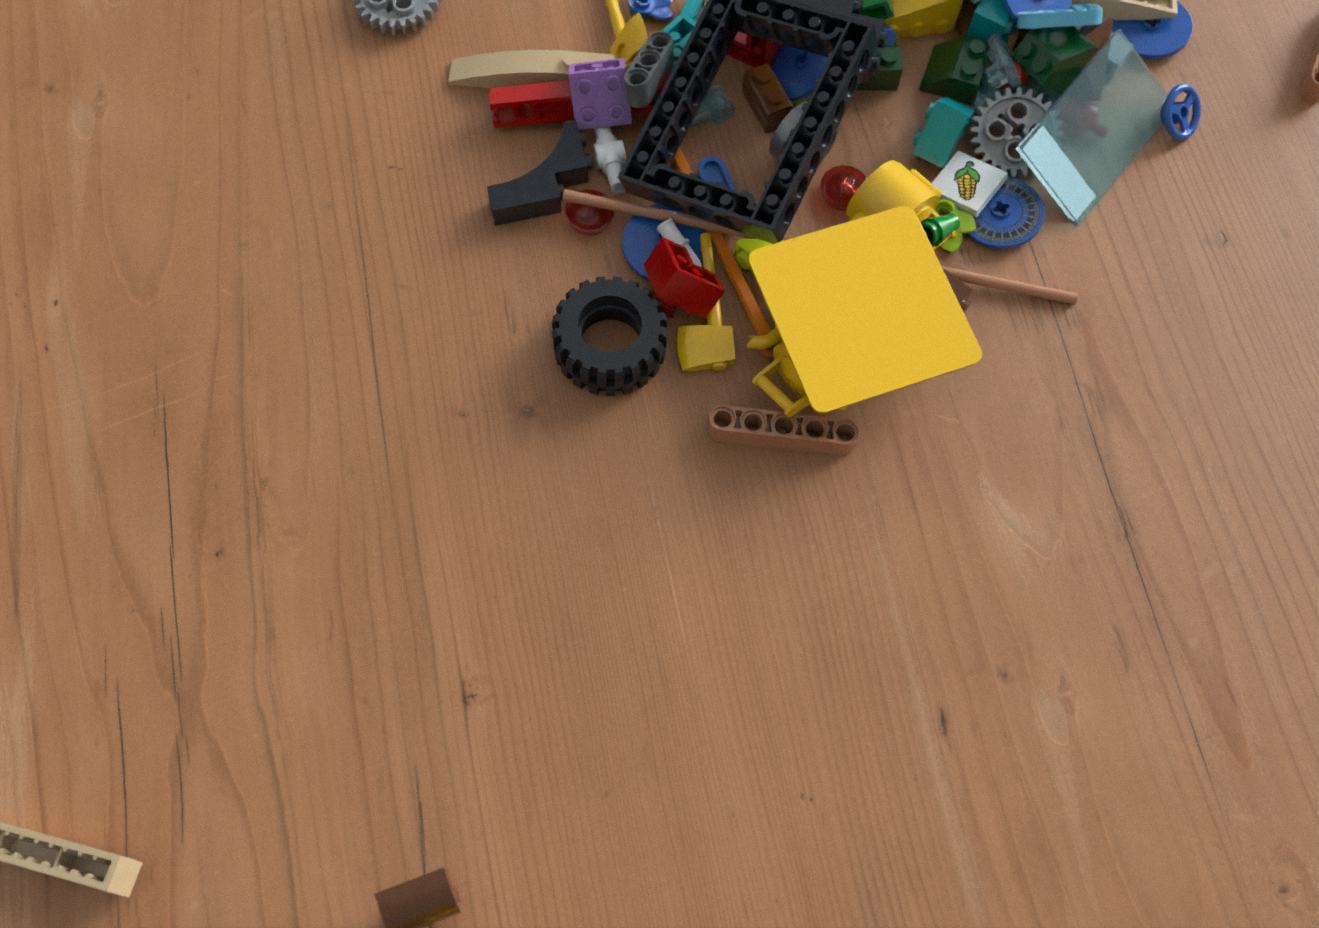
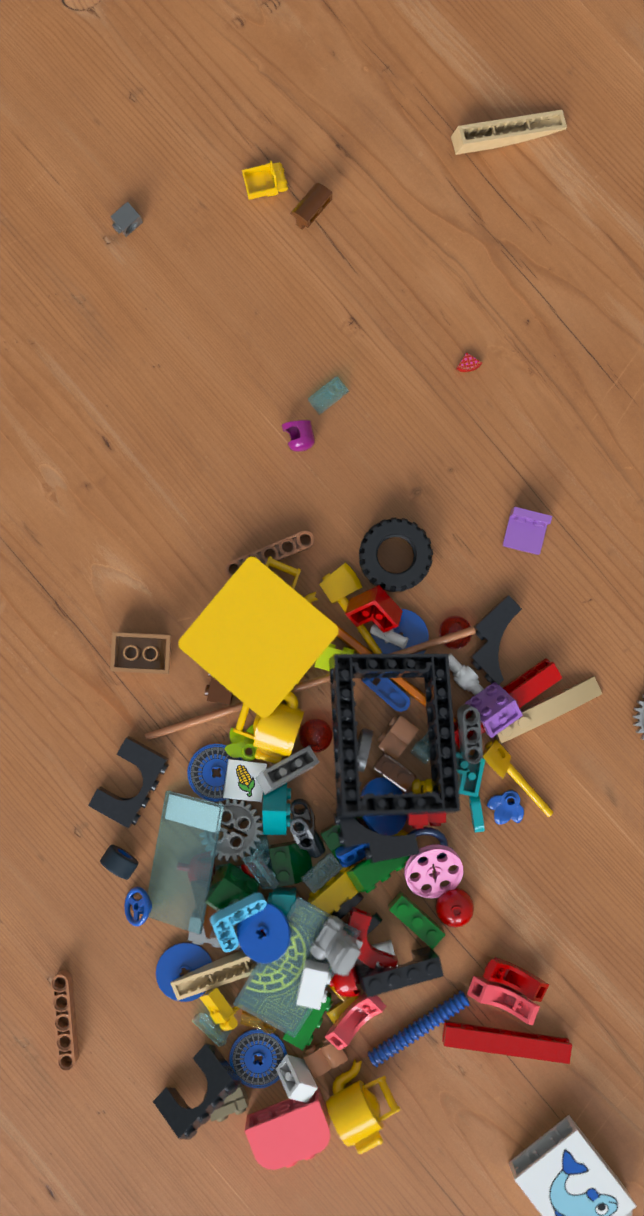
camera: 155 degrees right, 20 degrees up
(342, 538) = (468, 364): none -> red tile
(414, 281) = (526, 530): none -> medium lavender bracket
(570, 606) = (328, 395): none -> clear light blue plate
(645, 565) = (301, 435): none -> magenta helmet
(739, 63) = (426, 786): none -> yellow wheel
(739, 133) = (397, 736): none -> nougat brick
(919, 151) = (287, 770): none -> light grey brick
(922, 75) = (304, 829): none -> black connector
(925, 35) = (321, 872): none -> clear light blue plate
(940, 227) = (243, 720): green cone -> none
(1034, 394) = (140, 653): none -> medium nougat brick
(1144, 225) = (126, 810): none -> black arch
(1184, 167) = (119, 862): none -> black wheel

